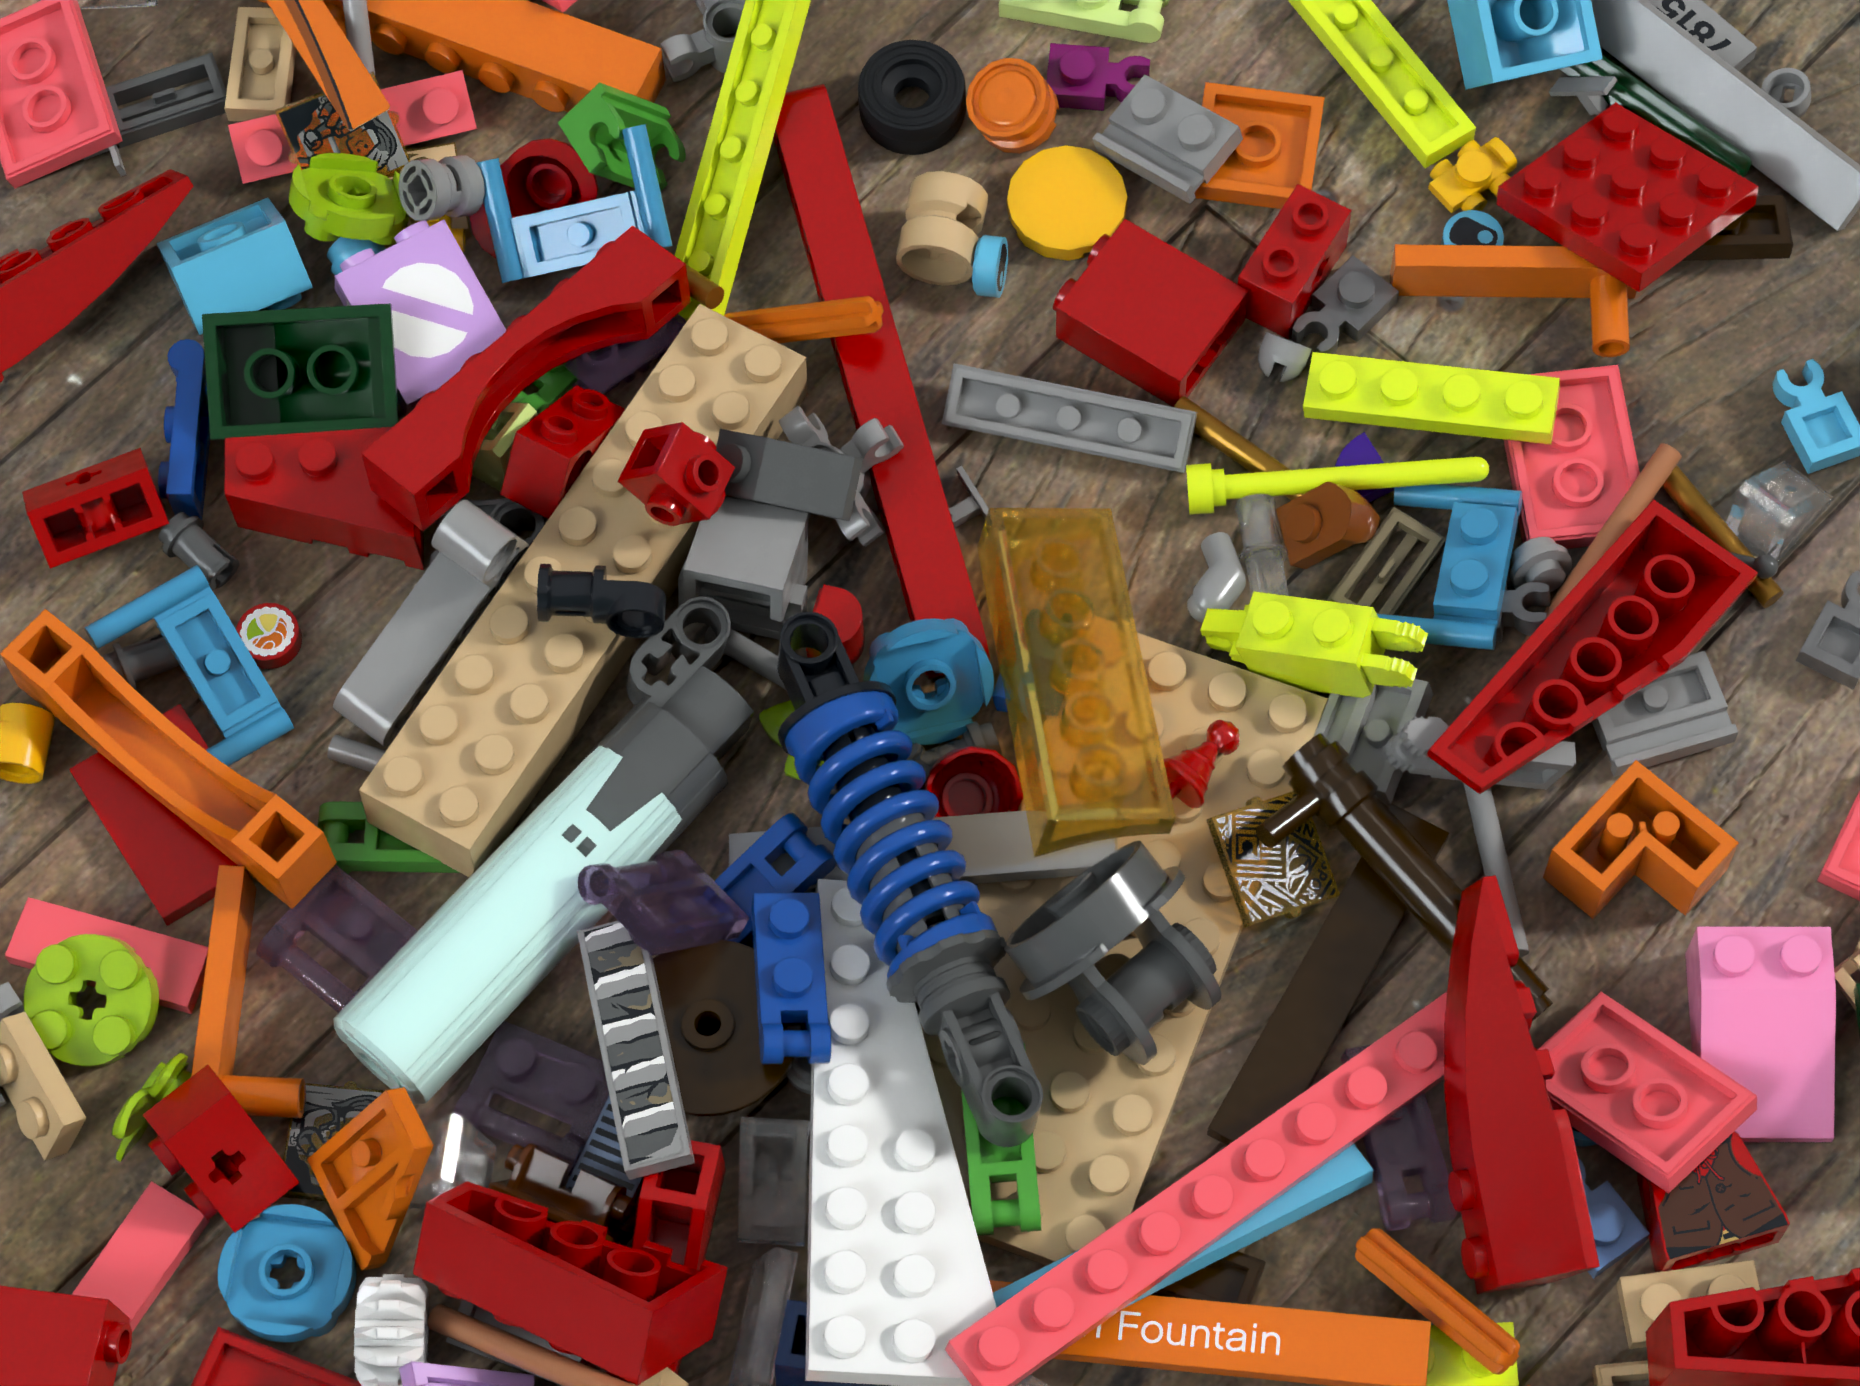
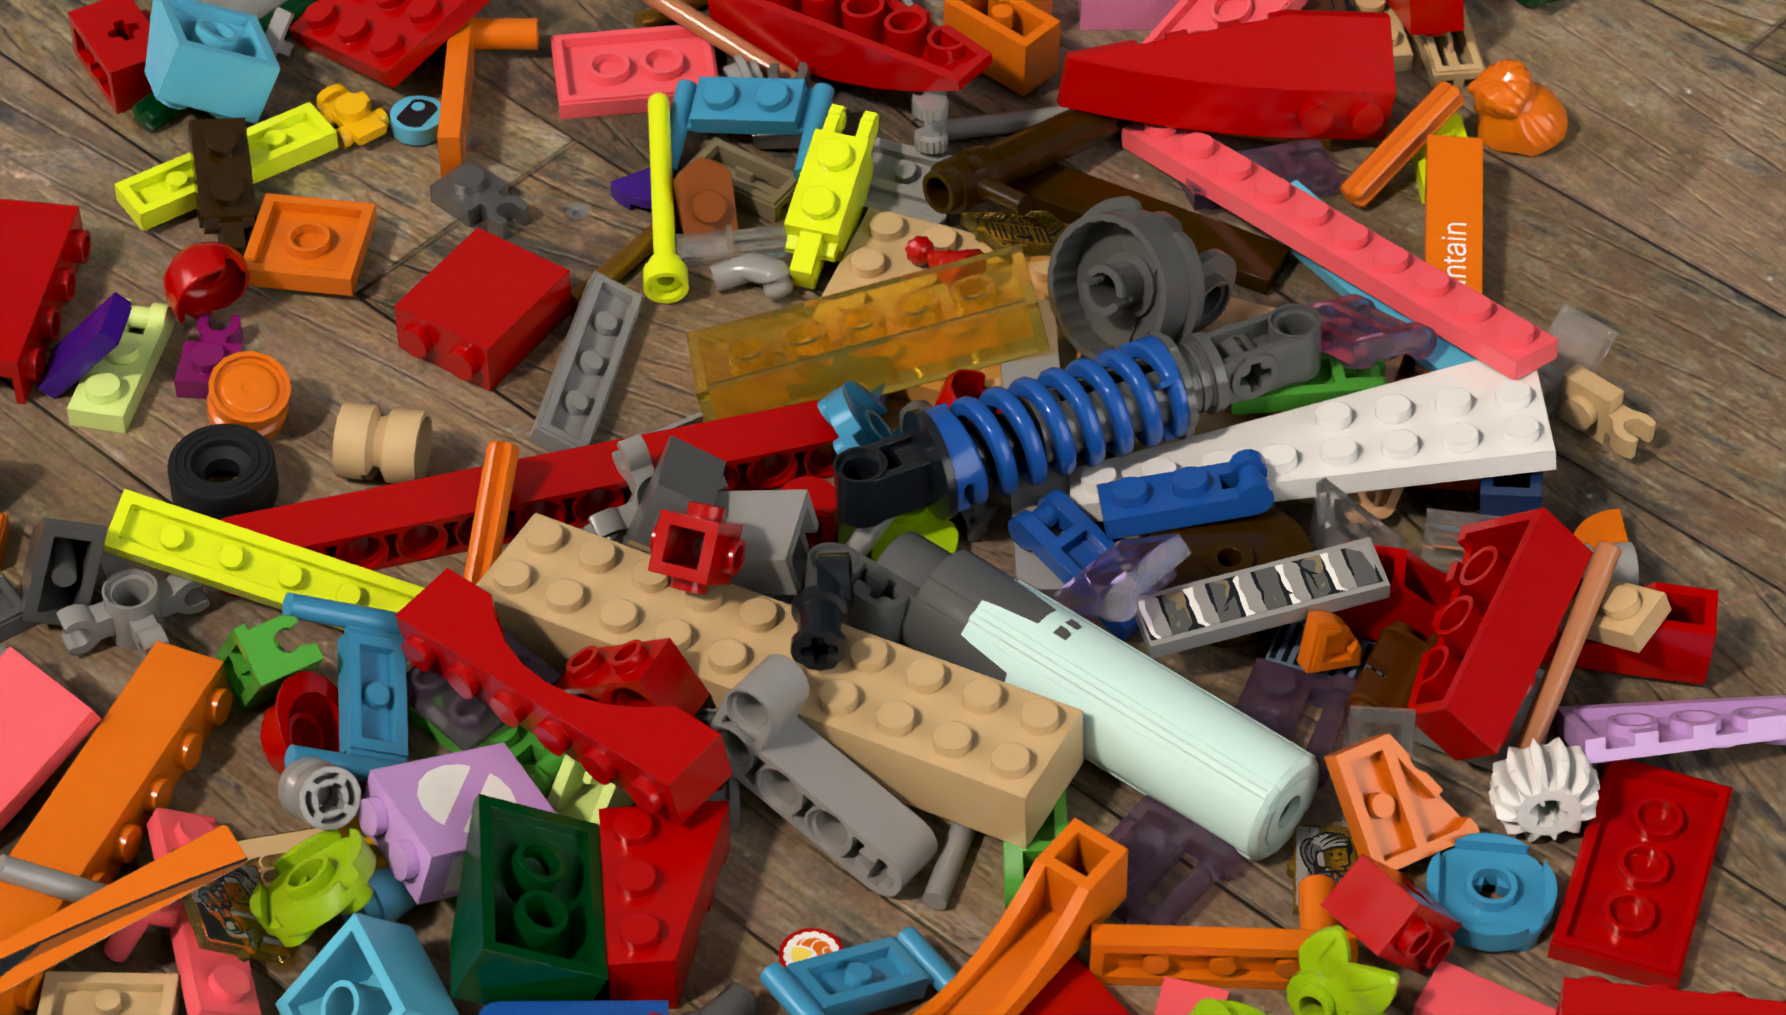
camera: 95 degrees left, 20 degrees down
(600, 1130) = (1327, 644): none -> orange tile
(990, 266) = (439, 408): medium azure tile -> none
(1042, 1170) = (1362, 334): none -> clear purple plate
(1065, 201) = (350, 368): yellow tile -> none
(1167, 138) = (301, 289): light grey plate -> none
(1182, 42) = (204, 279): none -> red hair
(1285, 352) = (531, 231): light grey hinge -> none
(1294, 259) = (432, 208): red brick -> none
(1330, 53) = (223, 179): none -> dark brown hinge
(1431, 398) = (579, 141): neon yellow plate -> none

